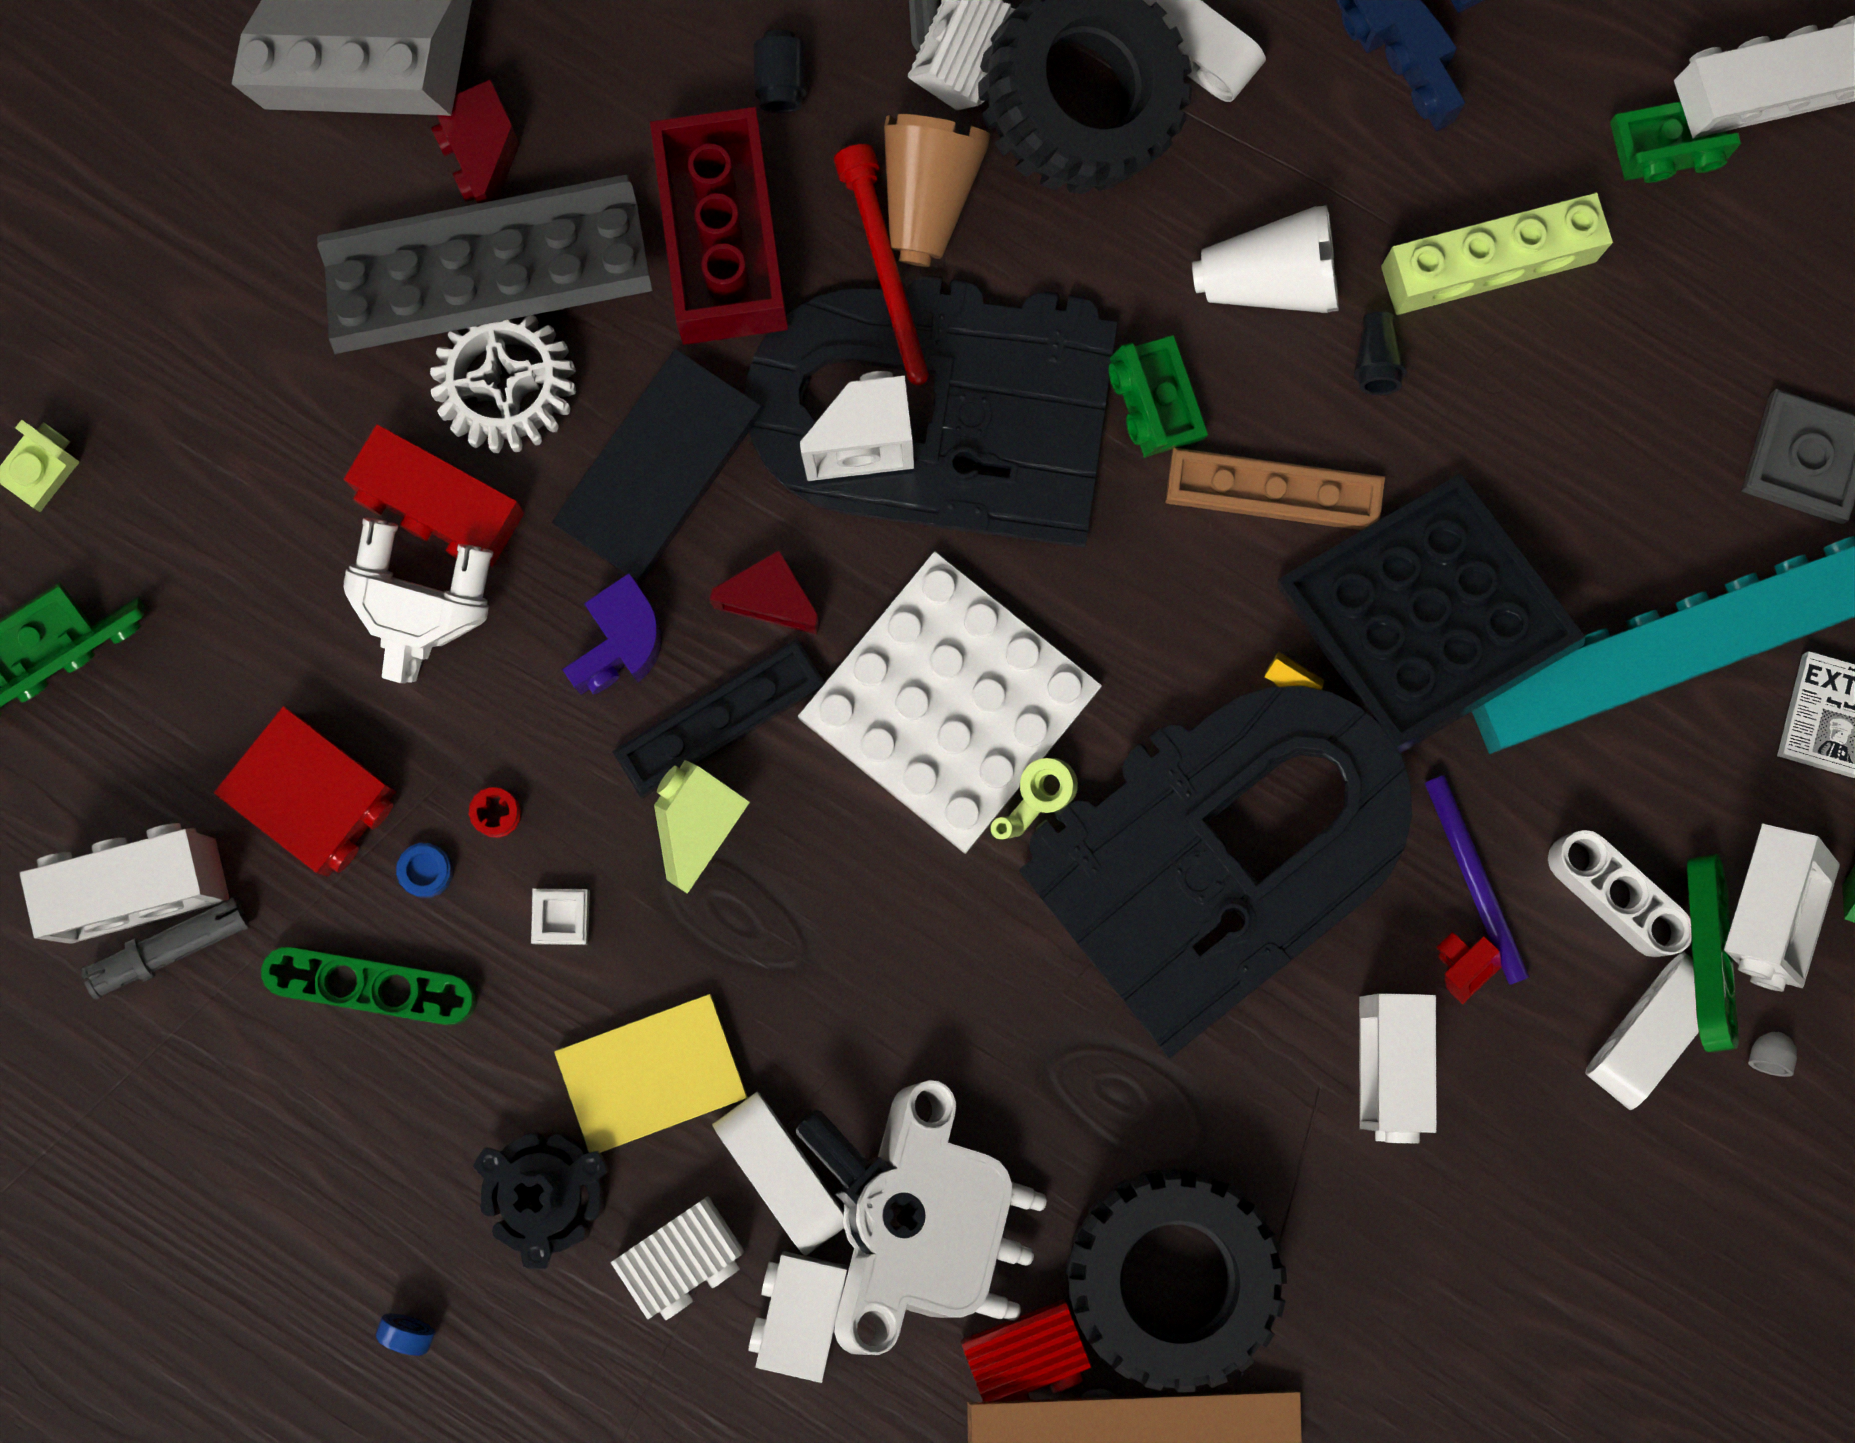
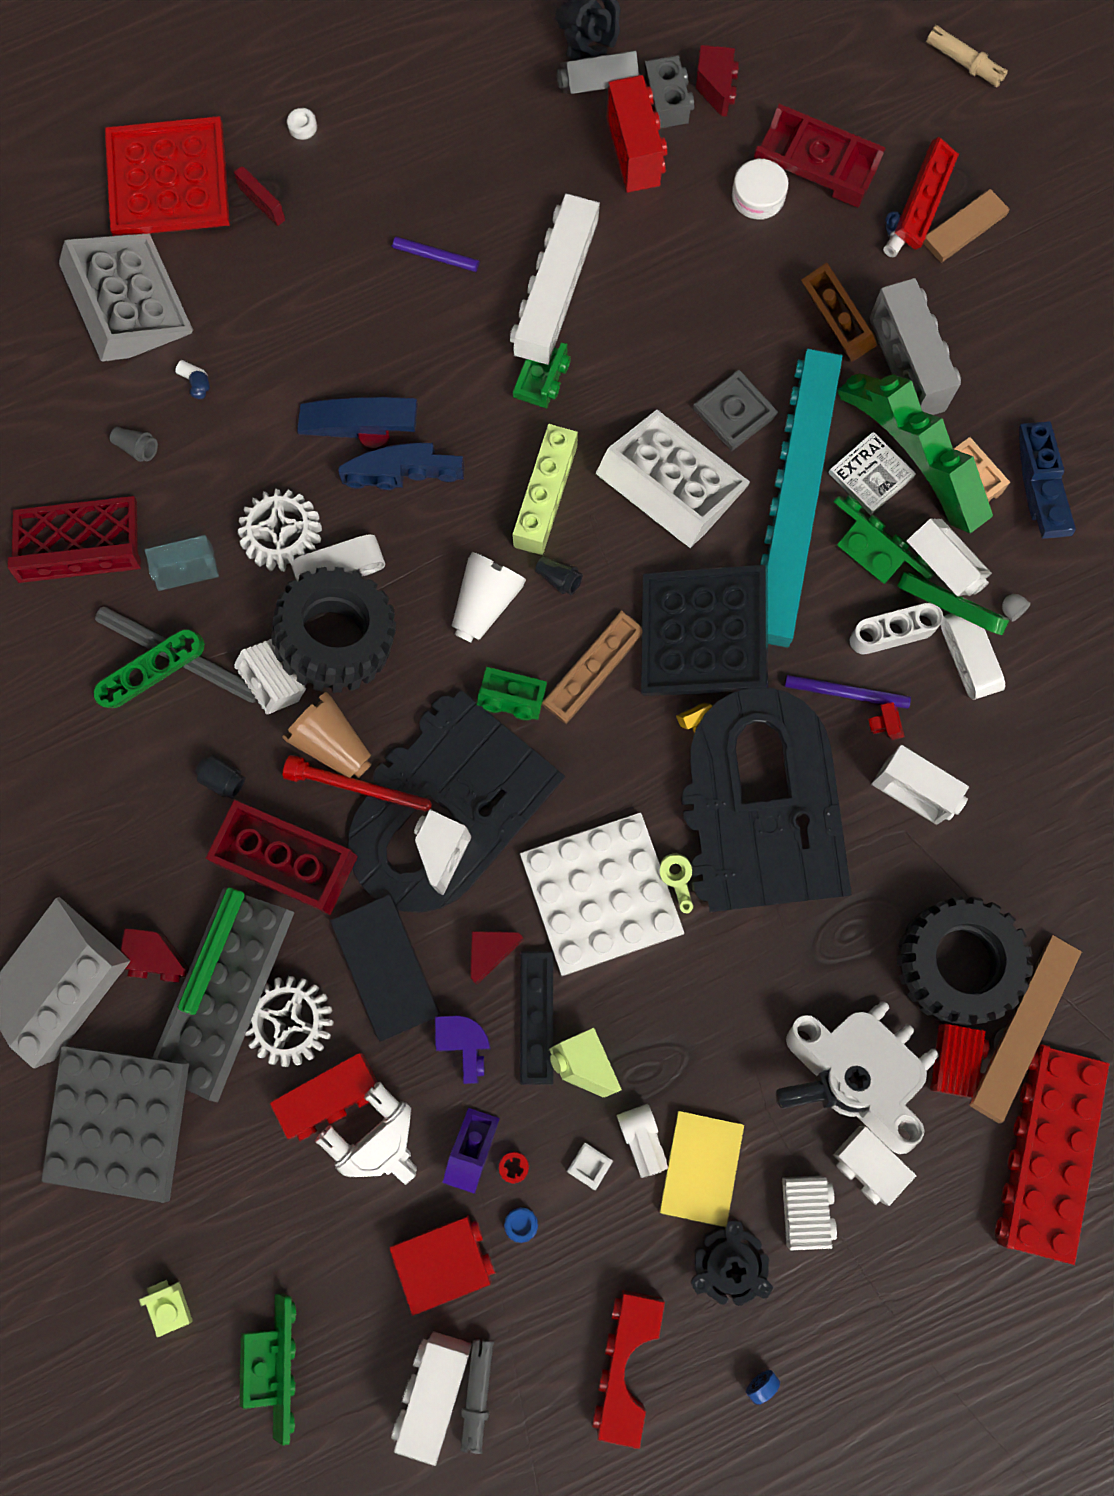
camera: 55 degrees left, 5 degrees down
(228, 239) = (115, 1123): none -> dark grey plate
(258, 1156) = (621, 1414): none -> red arch
(369, 986) = (568, 1296): green beam -> none
(480, 738) = (470, 1150): none -> dark purple slope
(531, 213) = (211, 951): none -> green axle
(647, 956) = (640, 1133): none -> white piece
(780, 1173) = (793, 1131): white beam -> none
(1638, 425) = (671, 477): none -> white slope
(1731, 784) = (874, 547): none -> green bracket

